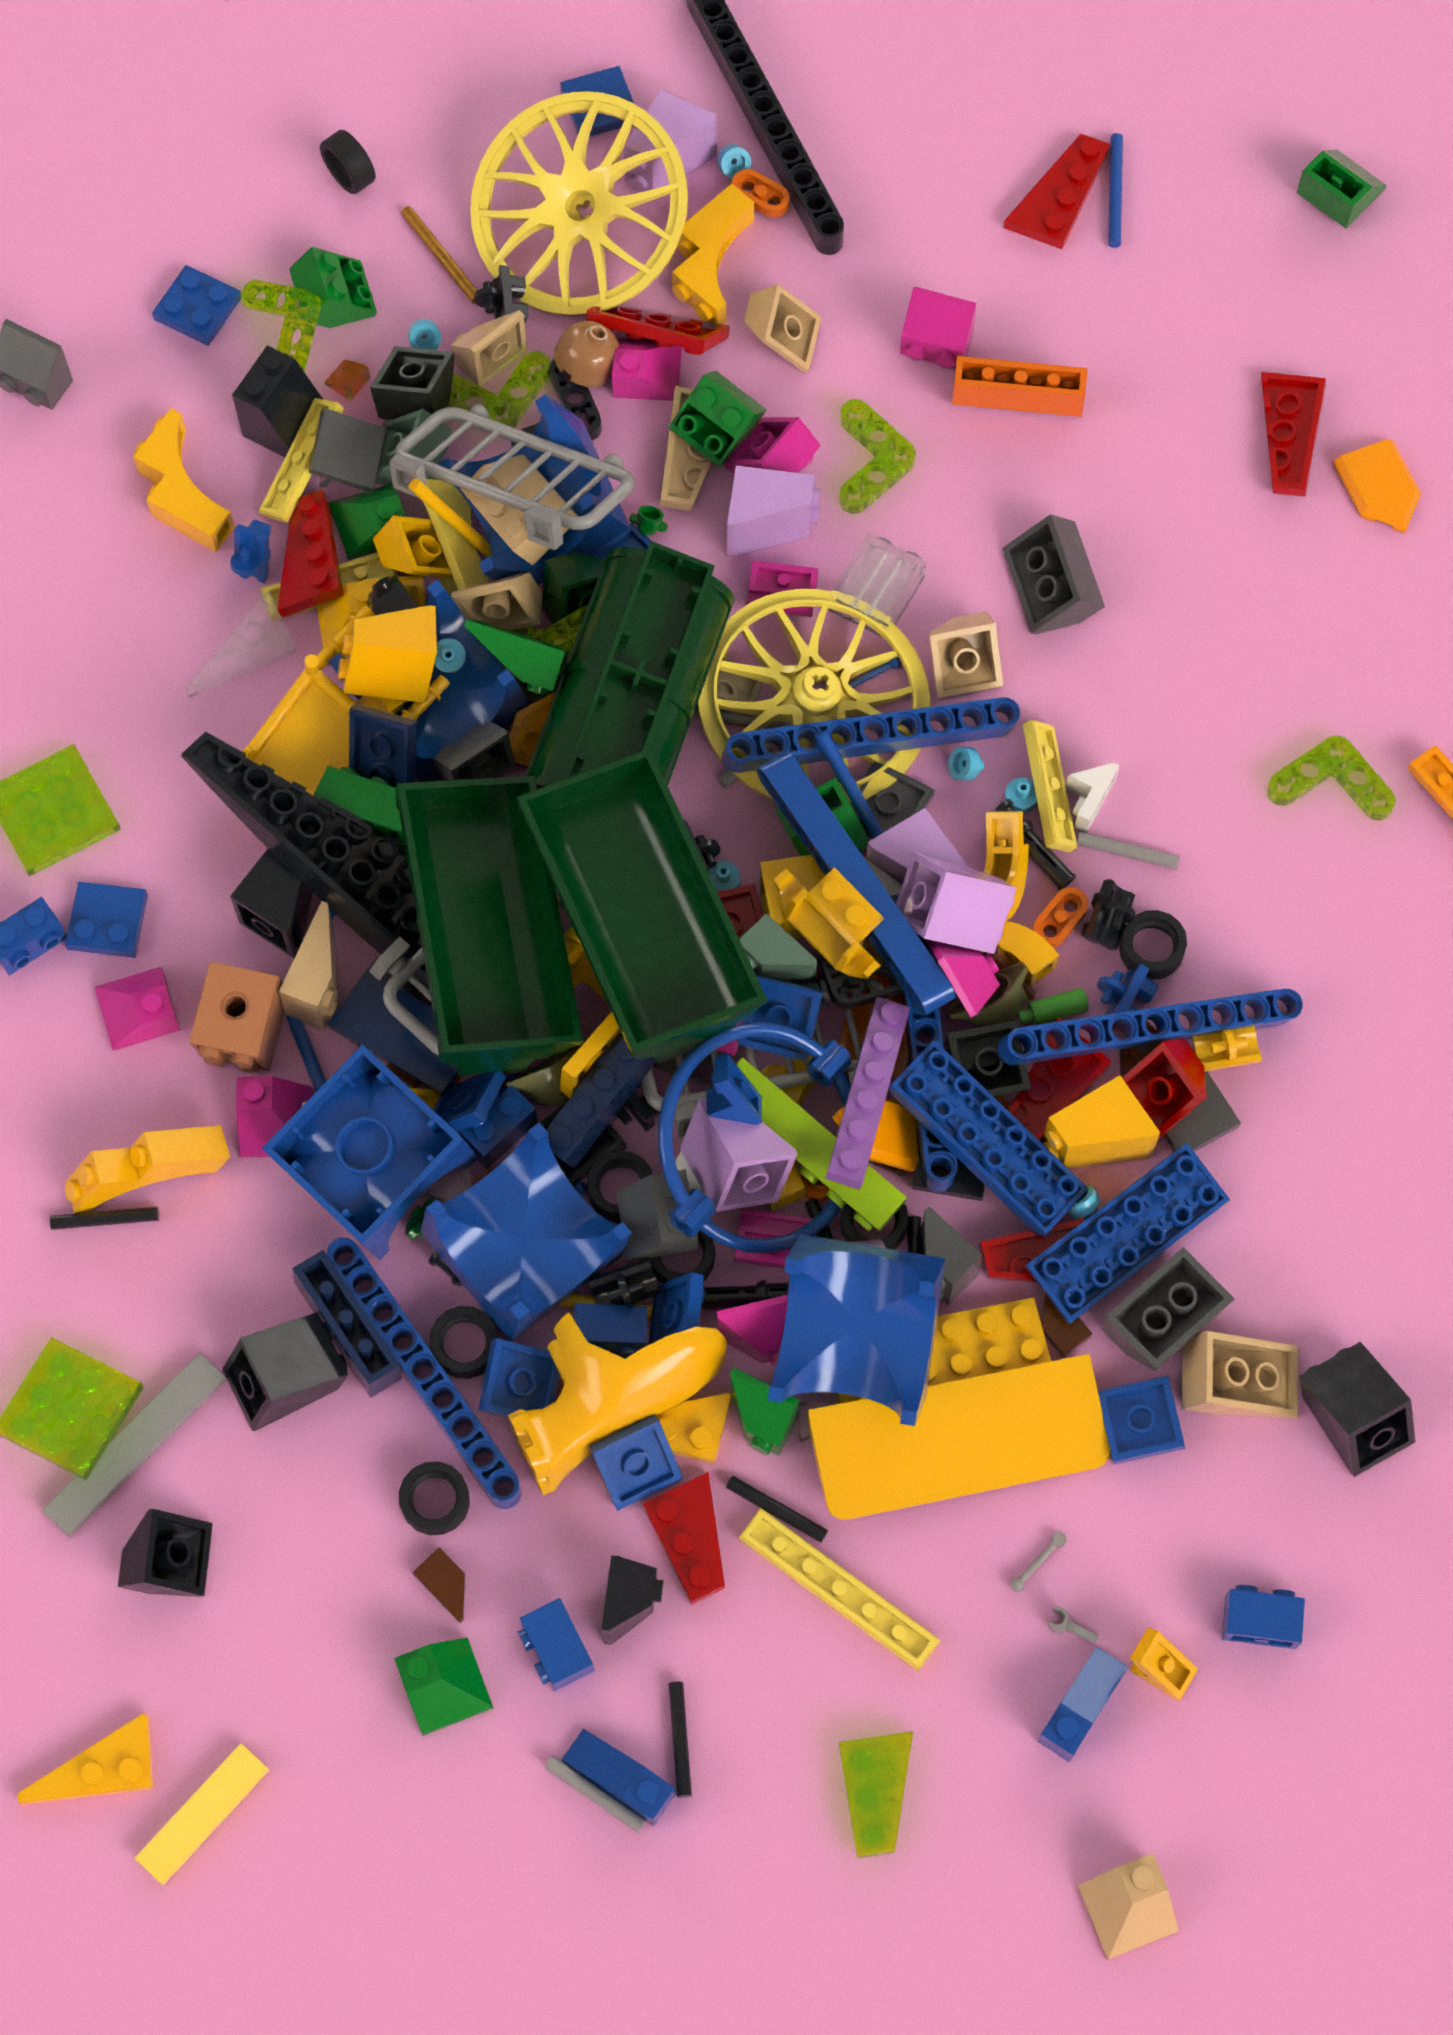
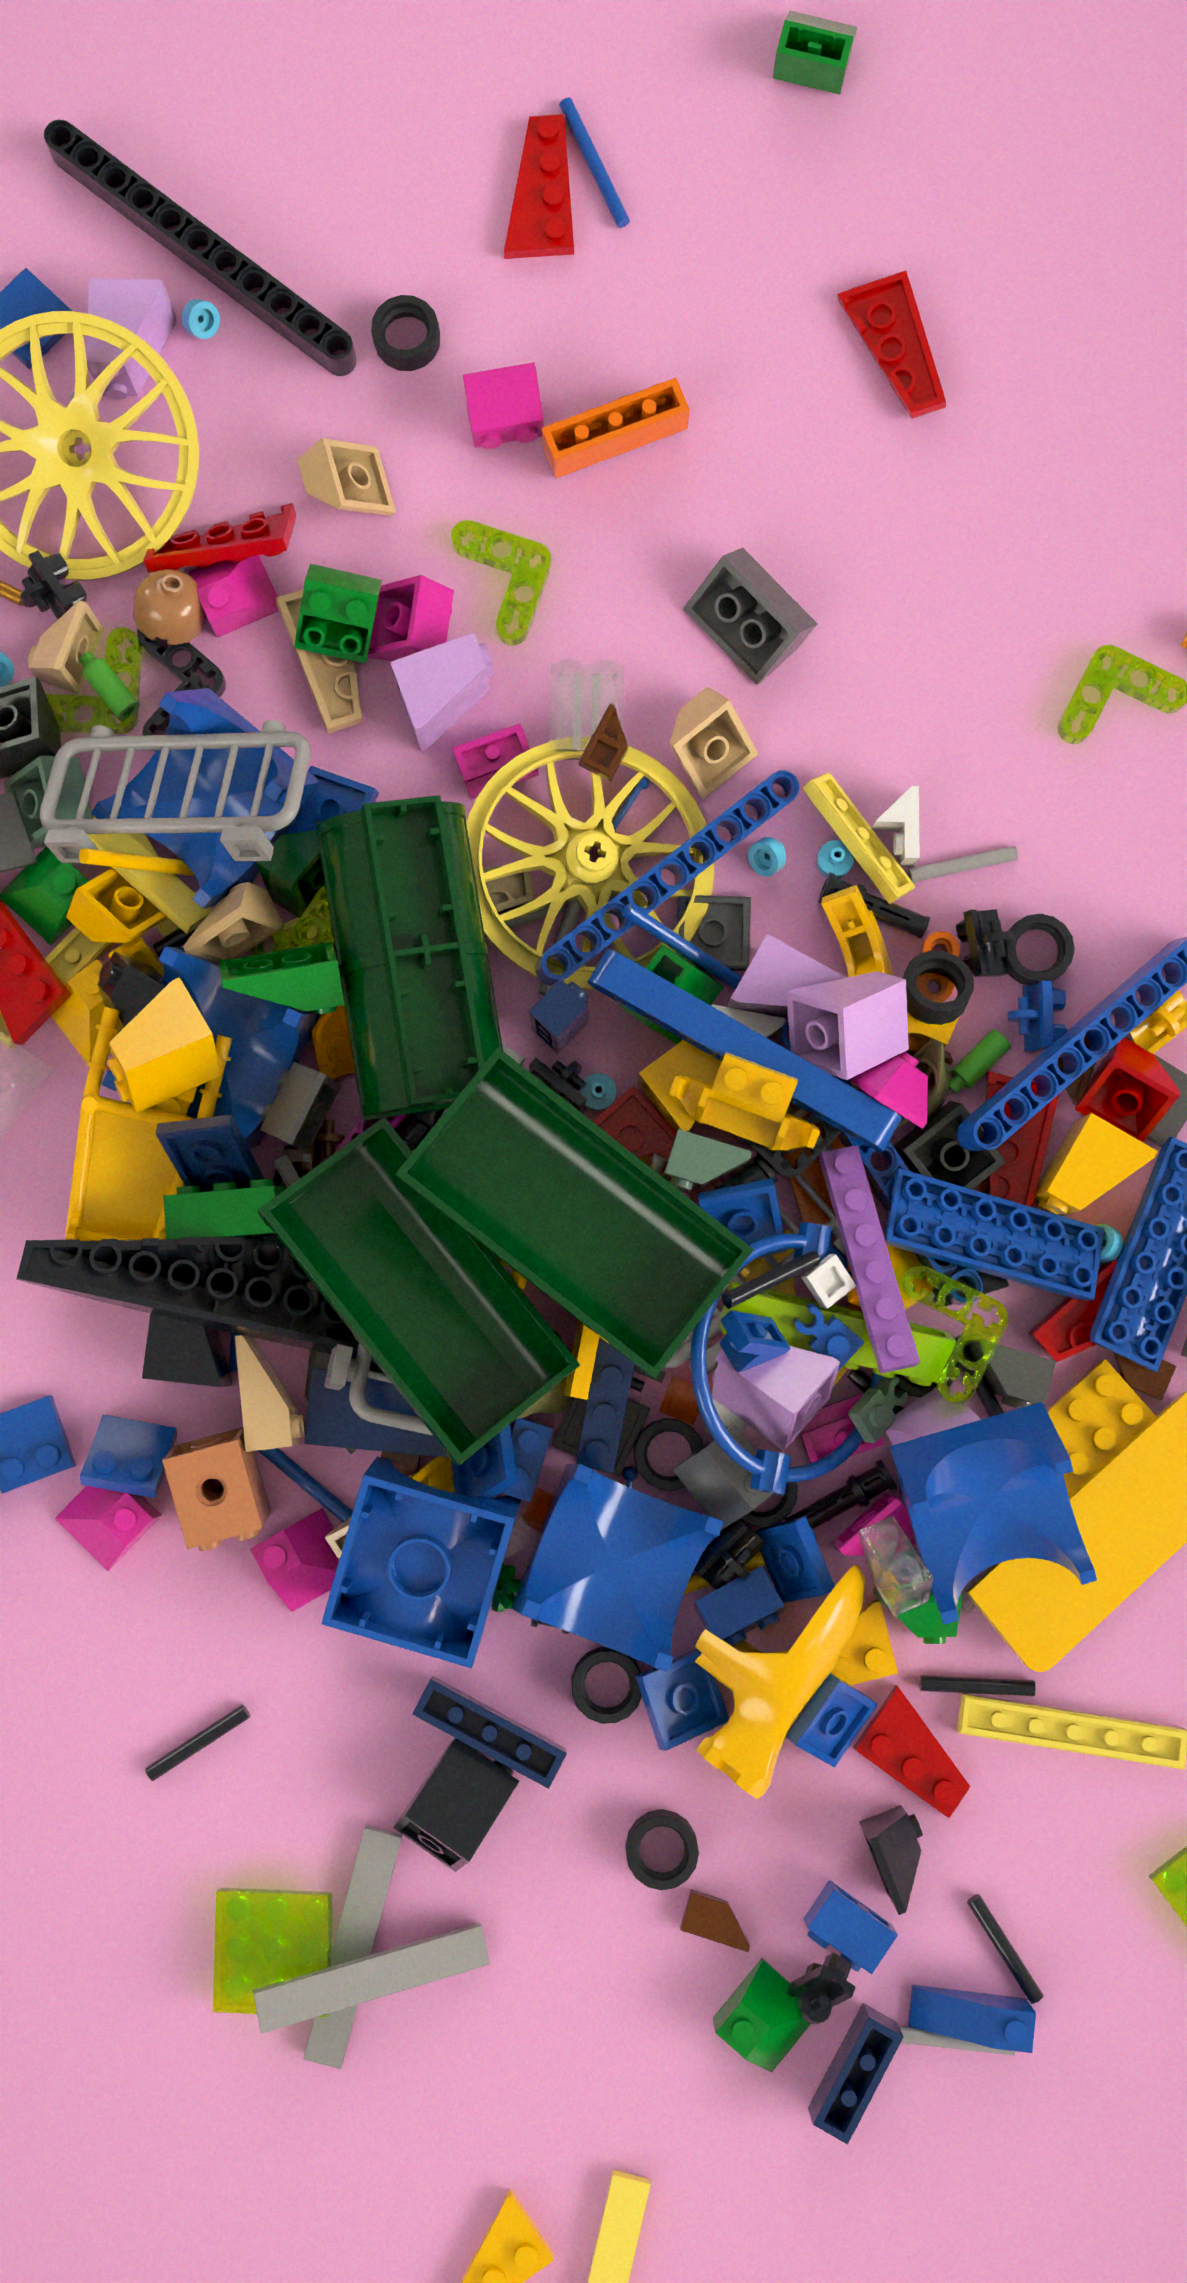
camera: 30 degrees left, 15 degrees up
(137, 1465) = (370, 1977): none -> light grey tile
(149, 1160) = (211, 1678): yellow arch -> none
(167, 1555) = (447, 2043): black slope -> none
(178, 961) = (128, 1456): none -> blue plate
(433, 1386) = (597, 1750): blue beam -> none
(456, 661) = (220, 1002): medium azure tile -> none
(493, 1761) = (855, 2073): none -> dark blue brick
(505, 1672) = (822, 1988): none -> black hips
(506, 389) = (109, 686): none -> bright green cylinder
(510, 521) = (199, 847): tan slope -> none
(648, 1150) = (680, 1401): none -> clear orange slope
(649, 520) = (327, 755): green plate -> none
(704, 245) = (220, 425): yellow arch -> none
(722, 793) = (560, 1015): none -> dark blue brick
(755, 1344) = (895, 1566): none -> clear slope
(763, 192) = (247, 338): orange plate -> none
(775, 1055) = (770, 1279): none -> black bar
(802, 1136) = (830, 1337): none -> blue plate
(812, 1223) = (874, 1411): none -> sand green plate
(824, 1090) = (828, 1281): none -> white tile
(875, 614) = (605, 747): none -> reddish brown tile
(891, 223) = (400, 307): none -> black tyre
(925, 1192) = (973, 1330): none -> clear neon green beam
(1042, 942) = (948, 966): none -> black tyre
(1379, 484) = (1008, 358): light orange tile -> none

